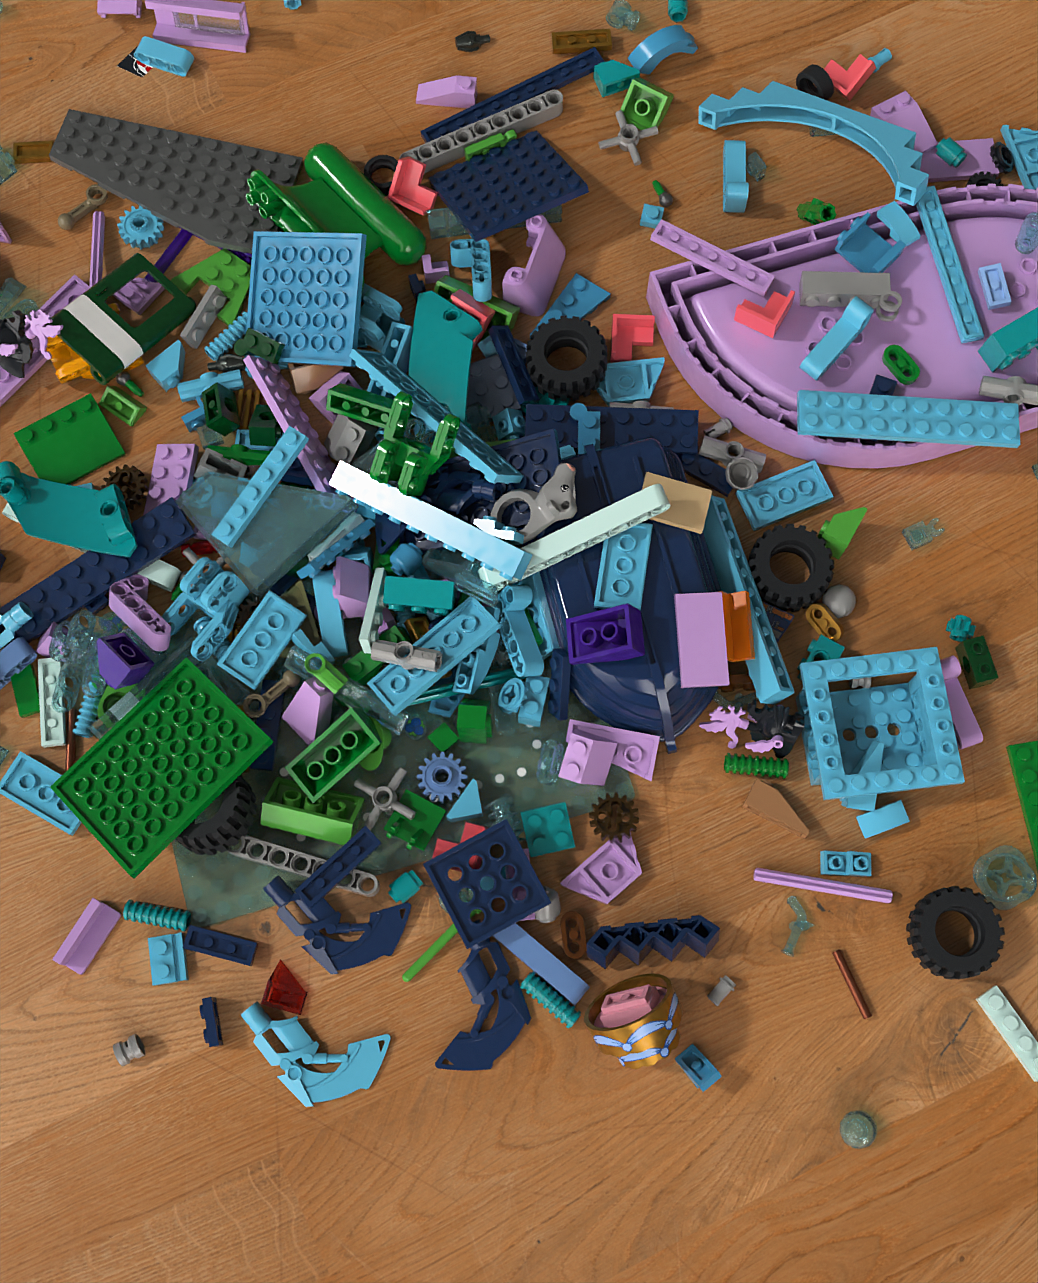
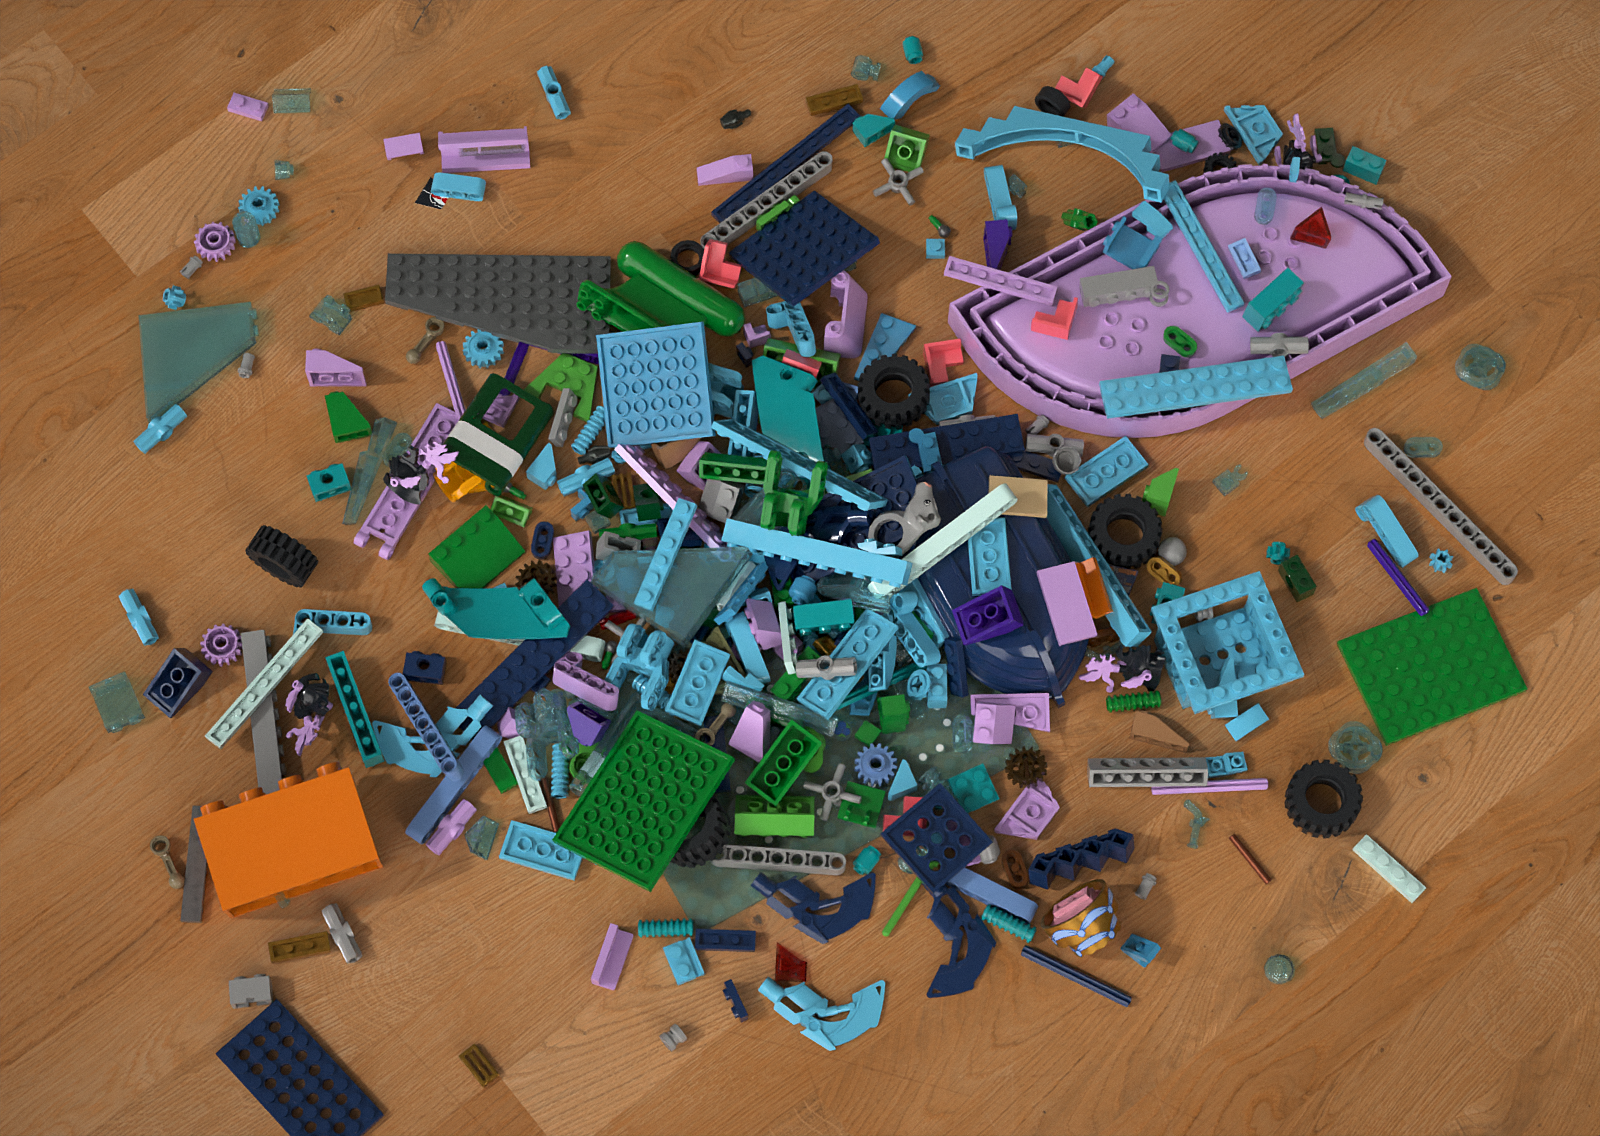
camera: 15 degrees left, 5 degrees down
(144, 446) = (542, 541): none -> dark blue plate
(259, 345) = (622, 433): dark green hinge -> none
(327, 674) = (764, 696): bright green piece -> none
(338, 867) = (811, 851): dark blue plate -> none
(615, 1082) = (1076, 976): none -> dark blue axle
(720, 218) = (996, 240): none -> dark purple slope
(754, 854) = (1147, 772): none -> light grey brick
(837, 339) = (1122, 331): medium azure beam -> none
(964, 722) = (1294, 626): lavender beam -> none

